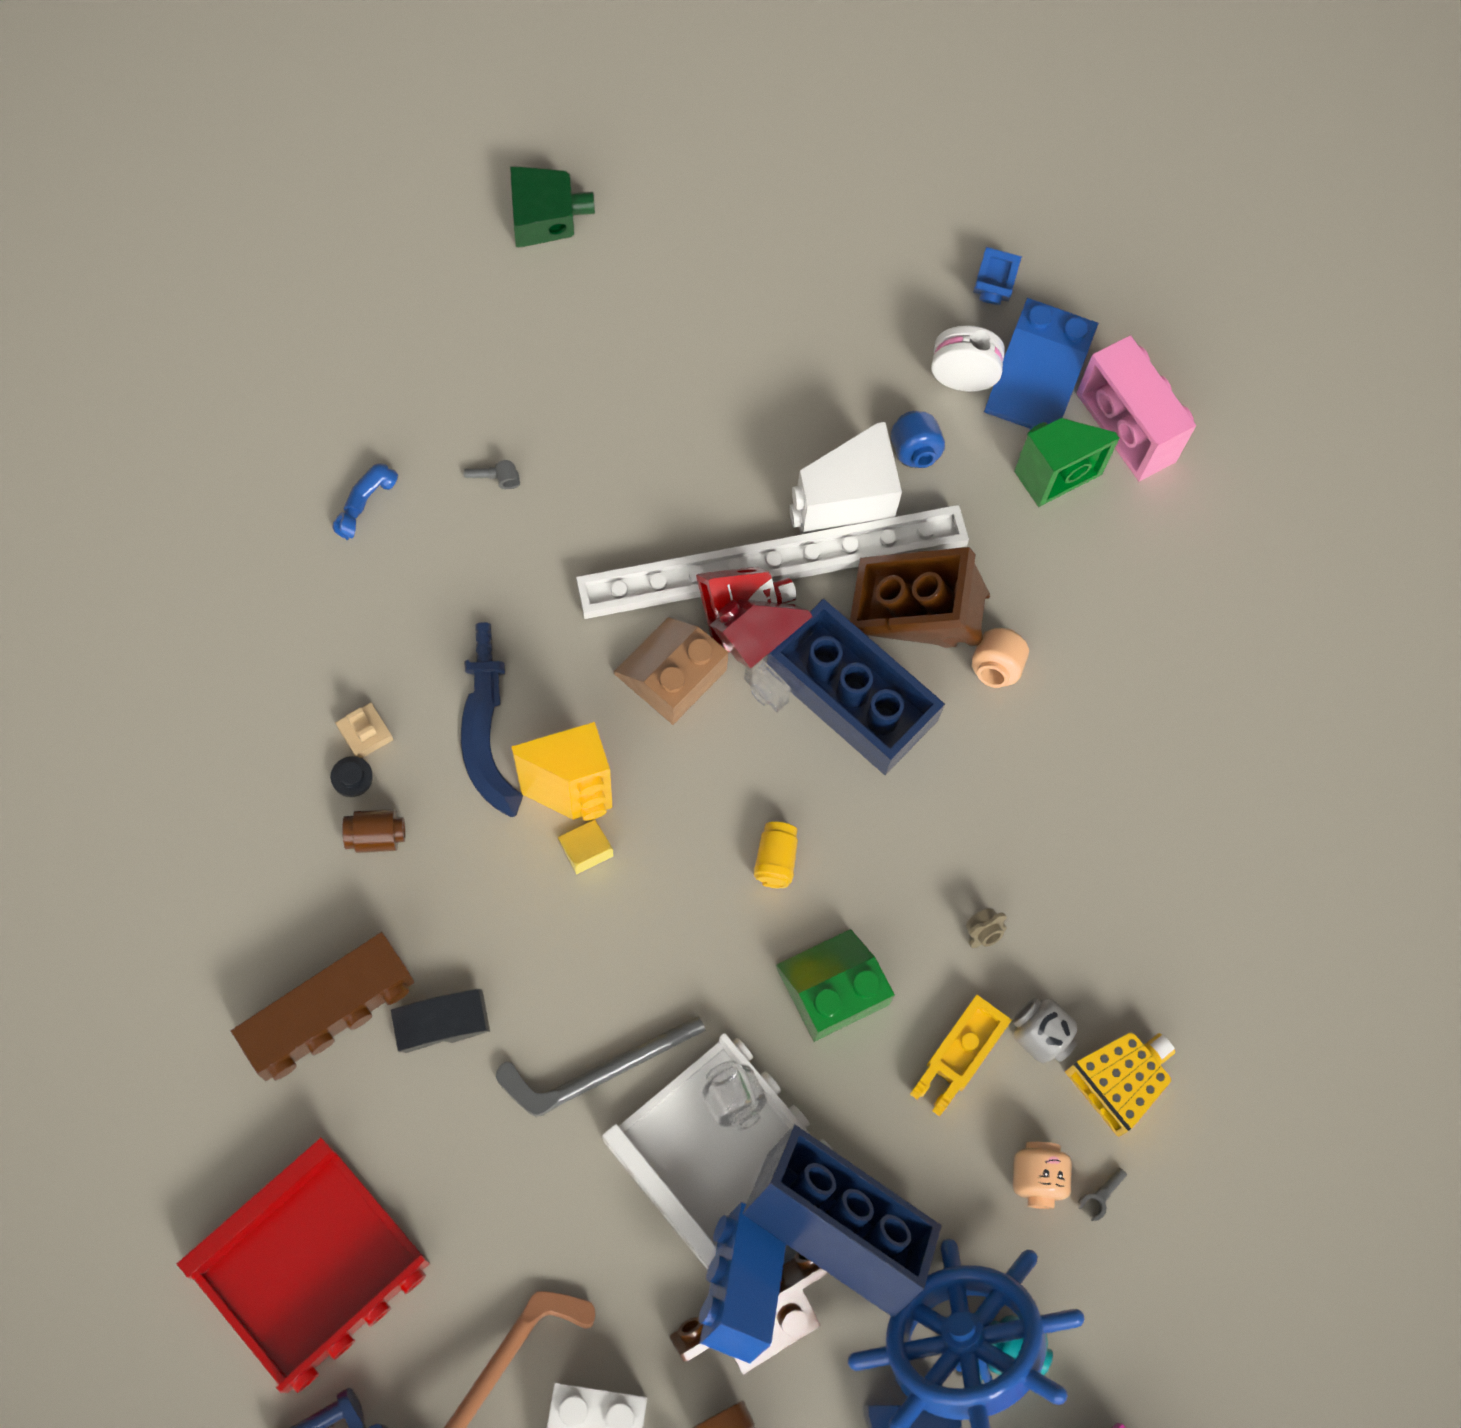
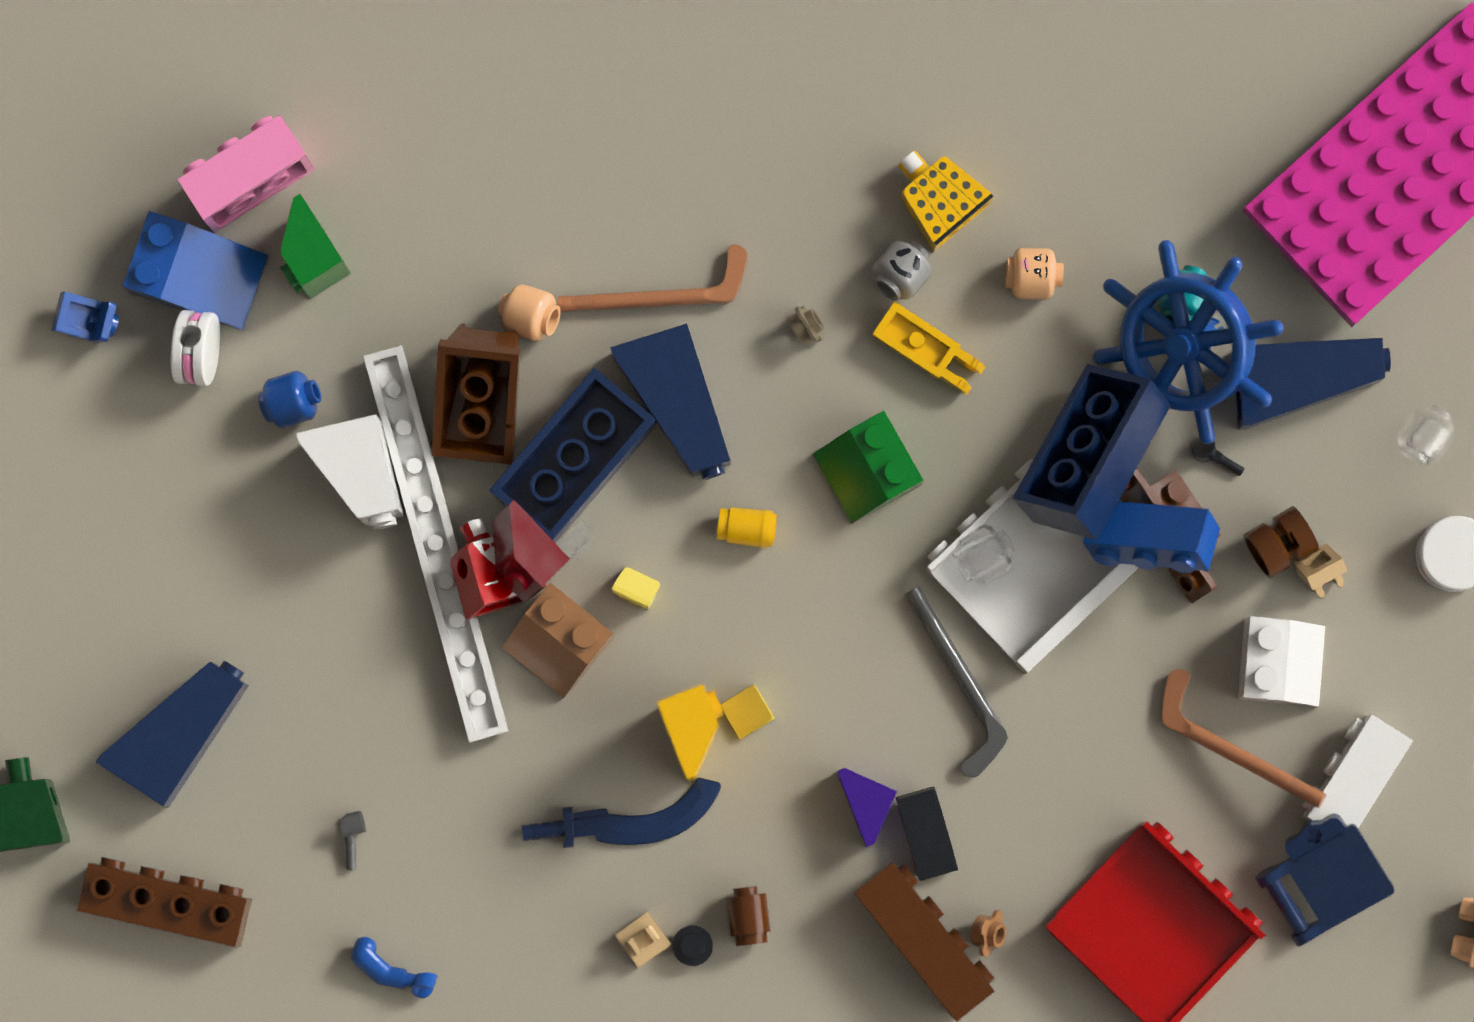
camera: 85 degrees left, 15 degrees up
(326, 1078) = (988, 932): none -> medium nougat plate
(448, 312) = (164, 903): none -> reddish brown brick
(478, 958) = (867, 801): none -> dark purple slope
(605, 329) = (175, 735): none -> dark blue slope
(718, 743) = (636, 588): none -> light yellow slope
(832, 1378) = (1218, 457): none -> black hand
(916, 792) = (674, 391): none -> dark blue slope
(1019, 848) = (720, 294): none -> nougat piece
(1104, 1193) = (1046, 219): dark grey hand -> none

